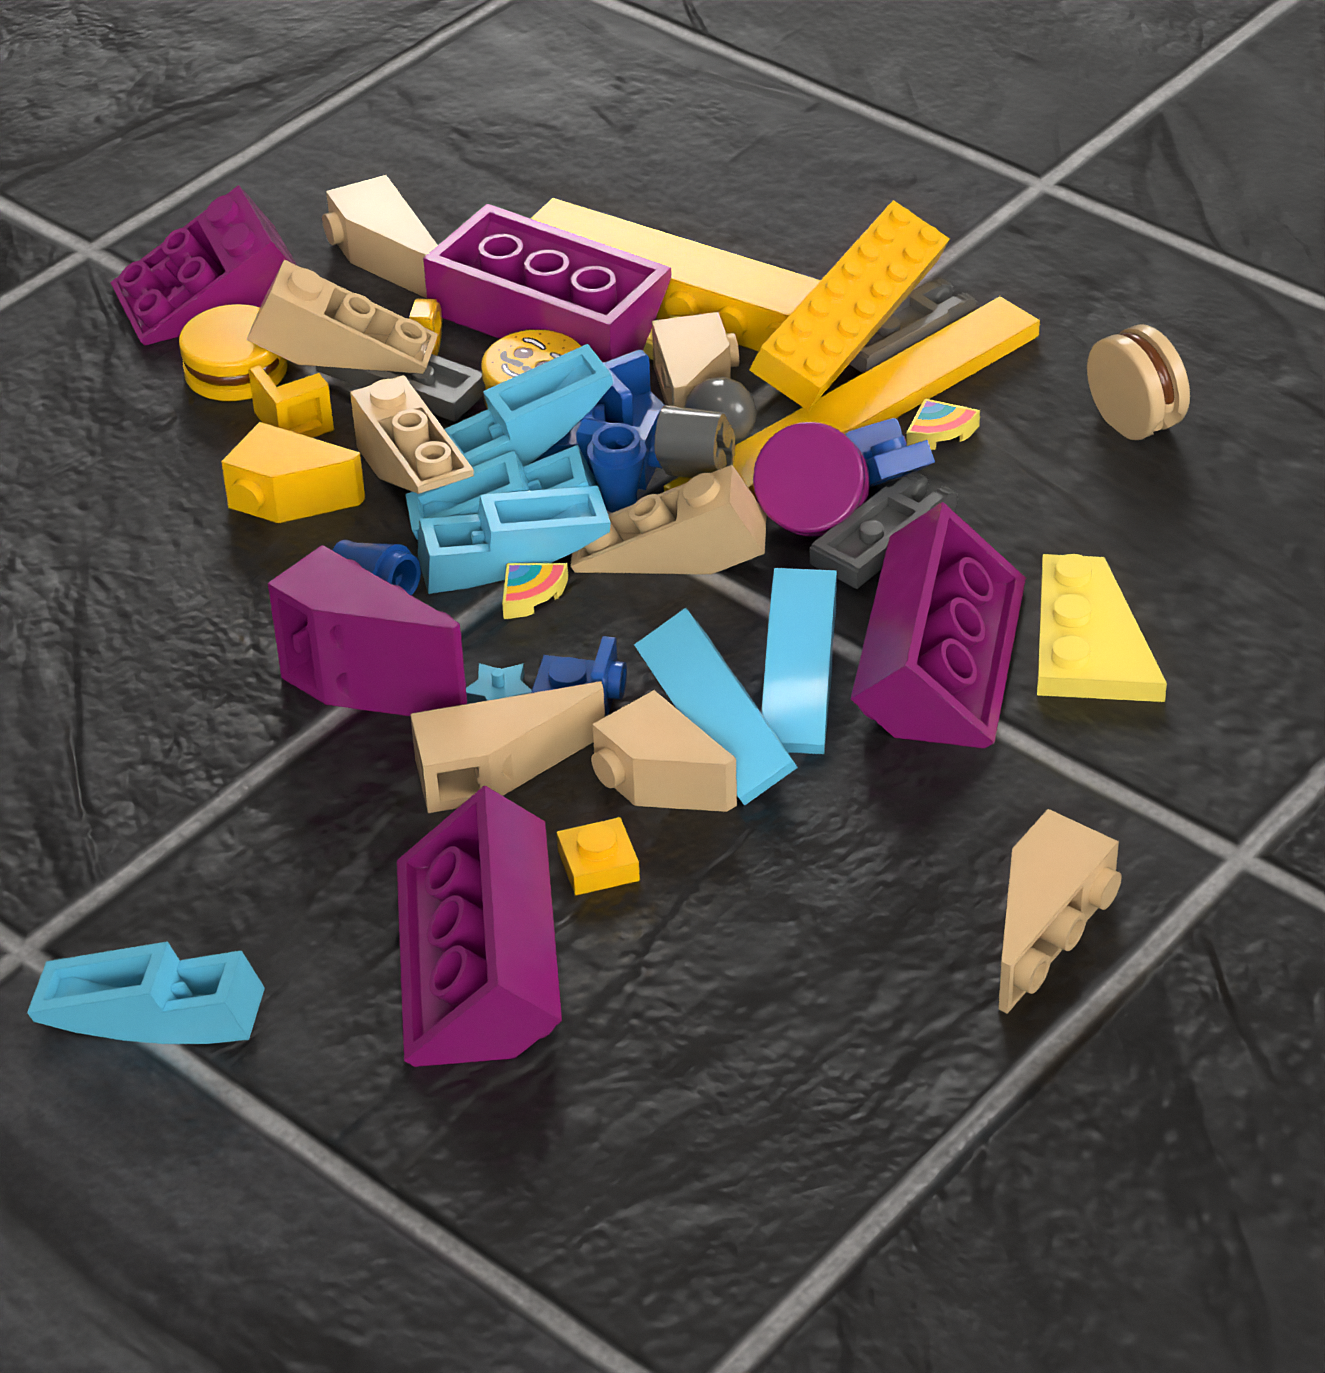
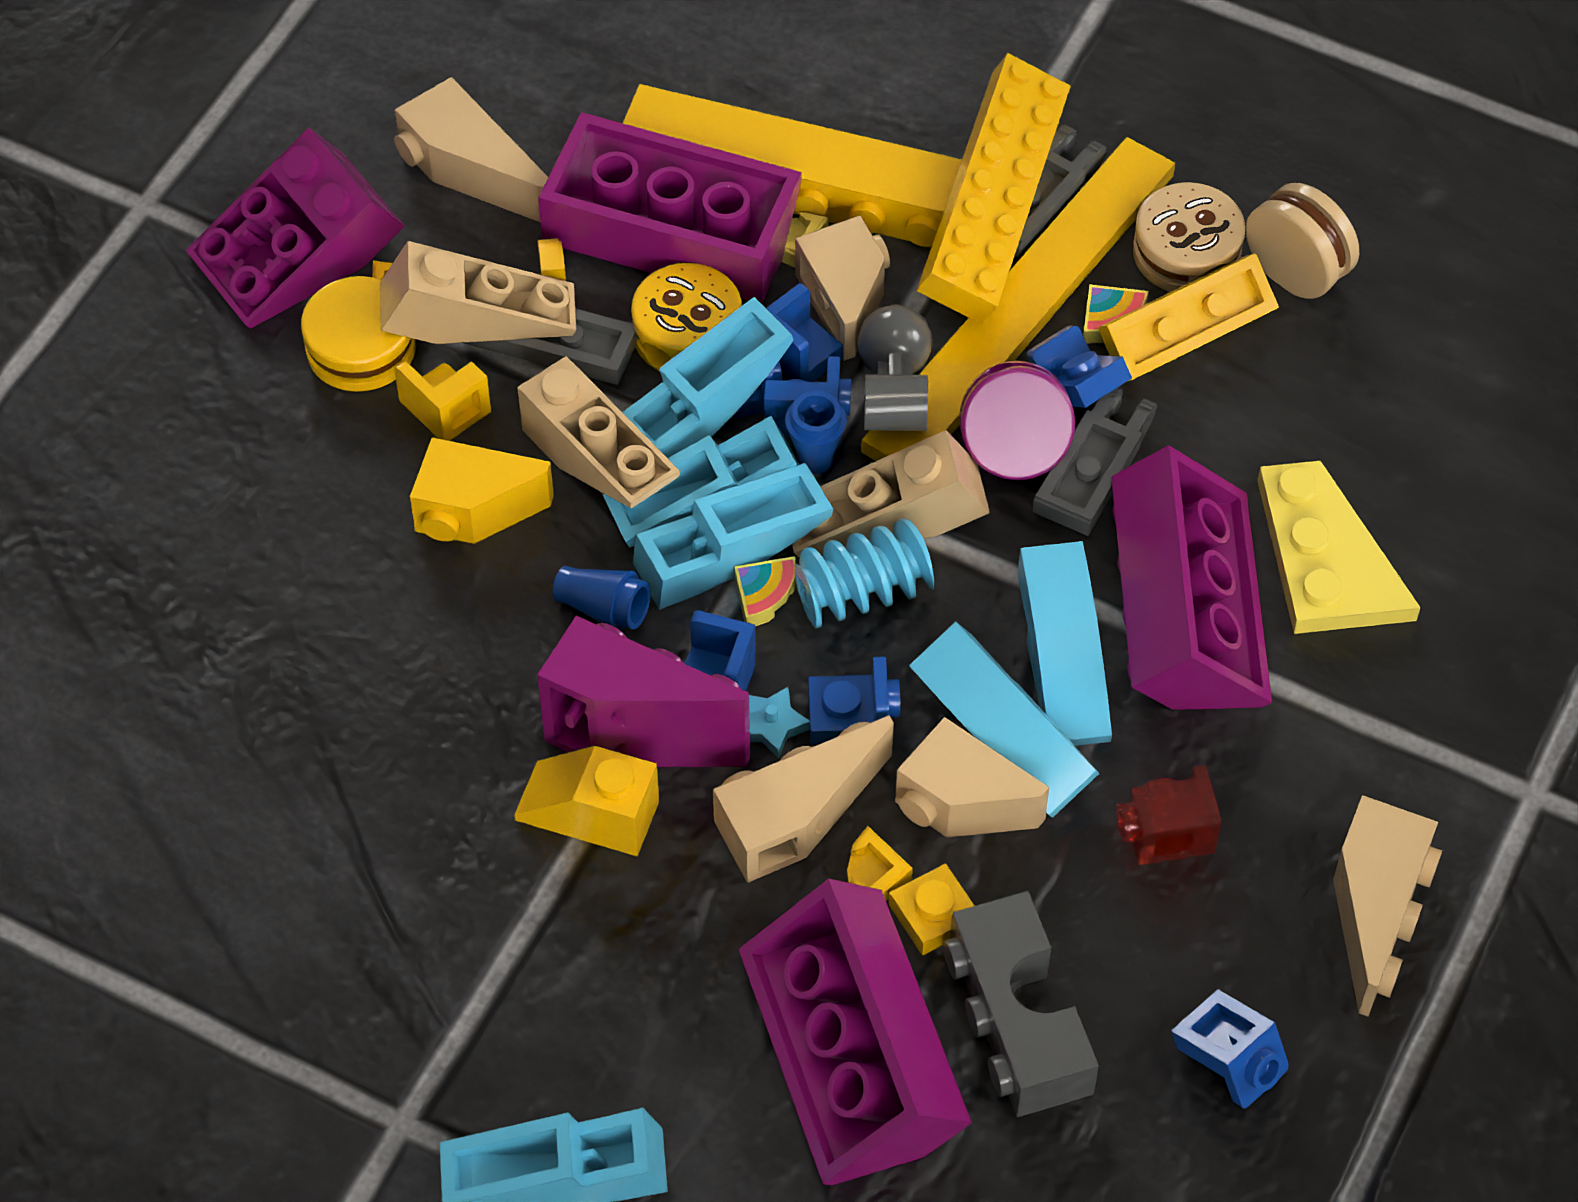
camera: 15 degrees left, 15 degrees up
(307, 718) = (593, 797): none -> yellow slope
(479, 620) = (722, 647): none -> blue panel
(557, 809) = (877, 864): none -> yellow tile
(622, 578) = (862, 569): none -> medium azure piece
(653, 975) = (1036, 1055): none -> dark grey arch
(854, 812) = (1171, 818): none -> clear red brick
(859, 1007) = (1235, 1045): none -> blue bracket
(1011, 431) = (1190, 316): none -> yellow plate
(1032, 376) = (1186, 234): none -> tan head

